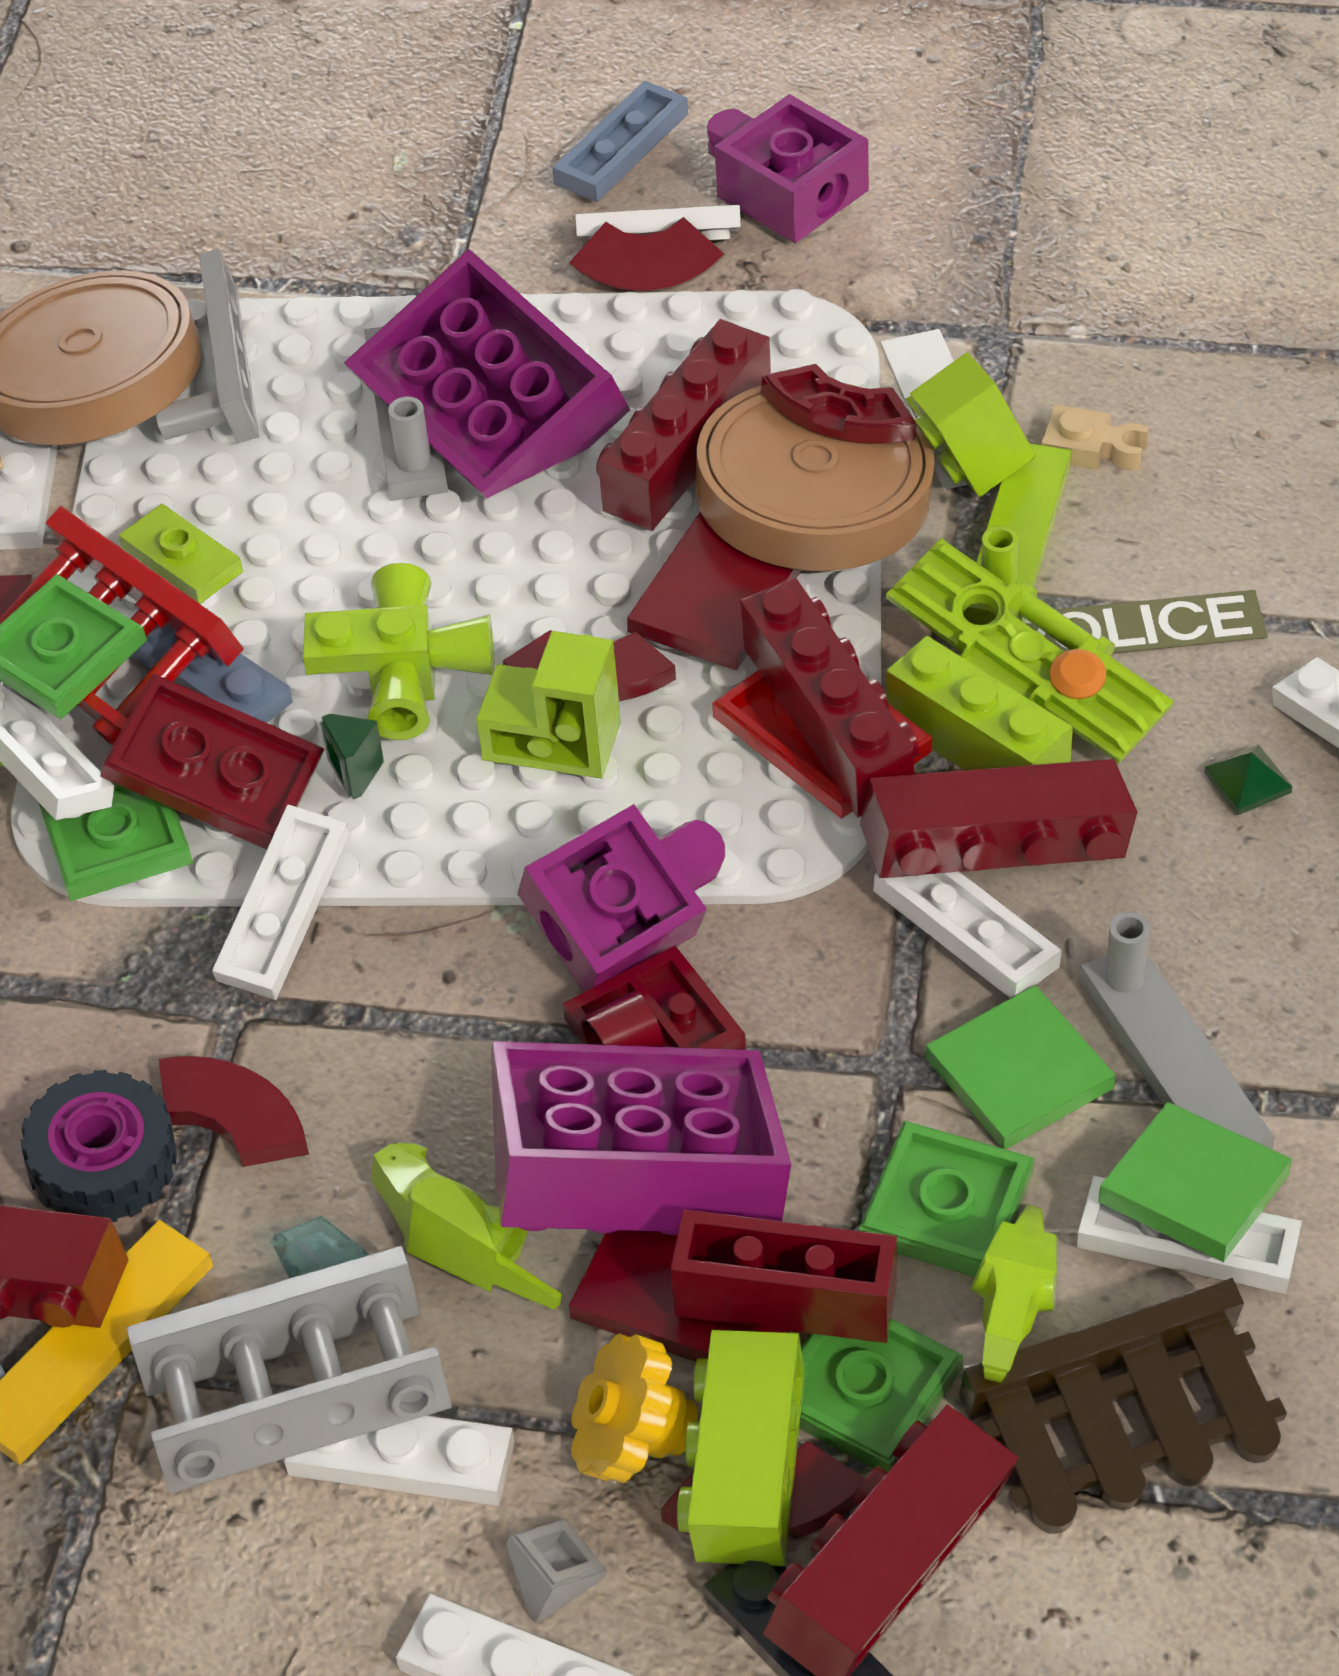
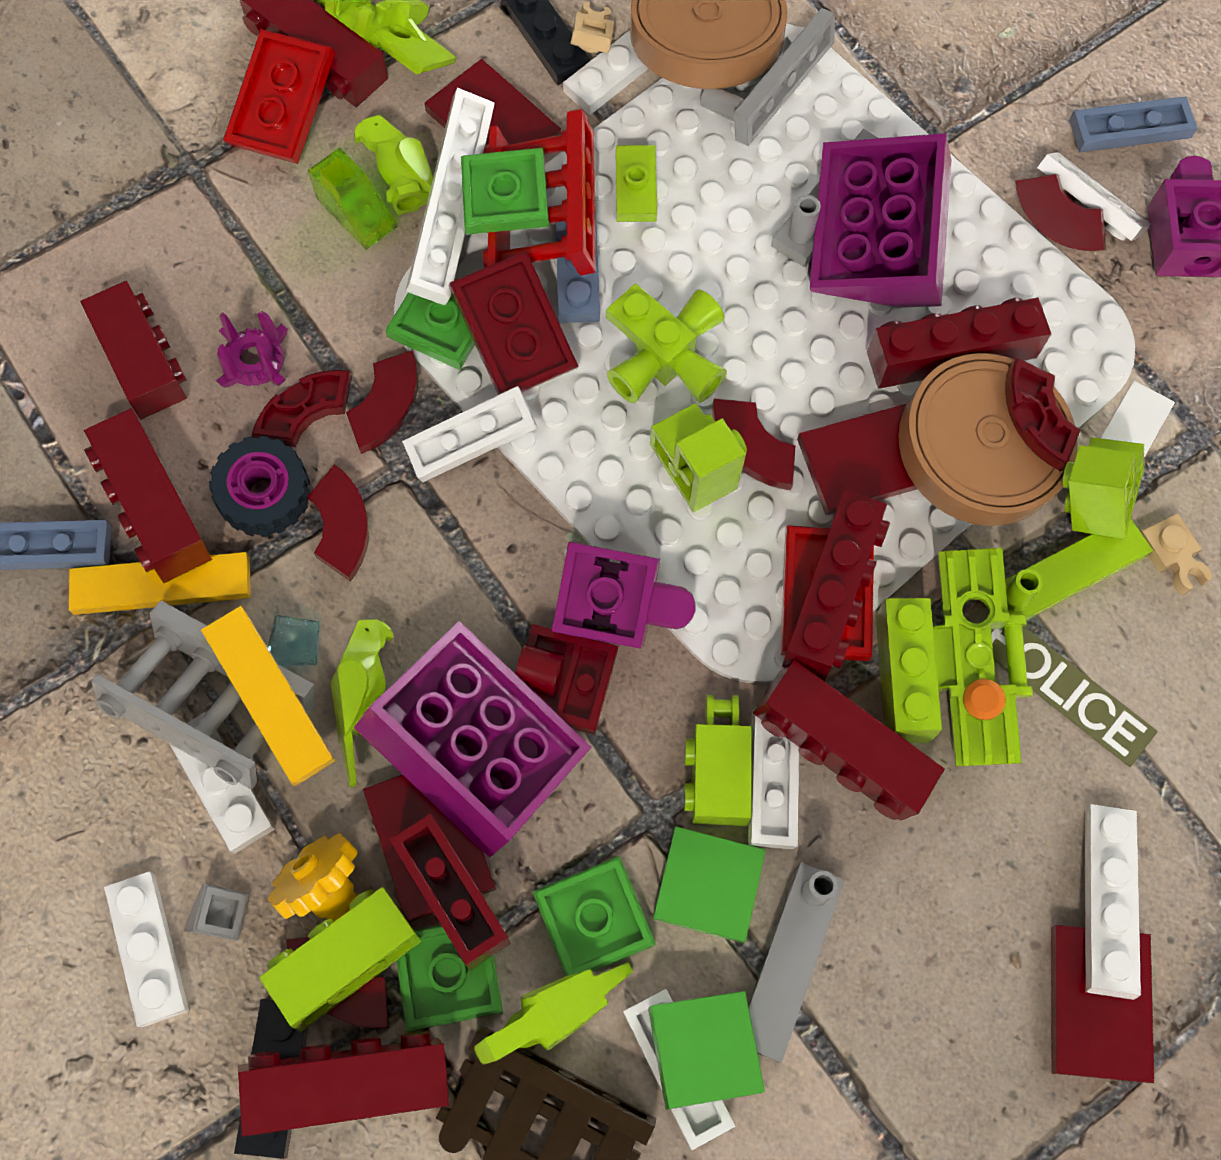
camera: 40 degrees right, 20 degrees up
(49, 1037) = (300, 405): none -> dark red tile
(145, 961) = (387, 403): none -> dark red tile
(352, 750) = (585, 383): dark green slope -> none
(368, 1288) = (268, 696): none -> yellow tile
(907, 956) = (720, 767): none -> lime brick
(1248, 779) = (1016, 842): dark green slope -> none

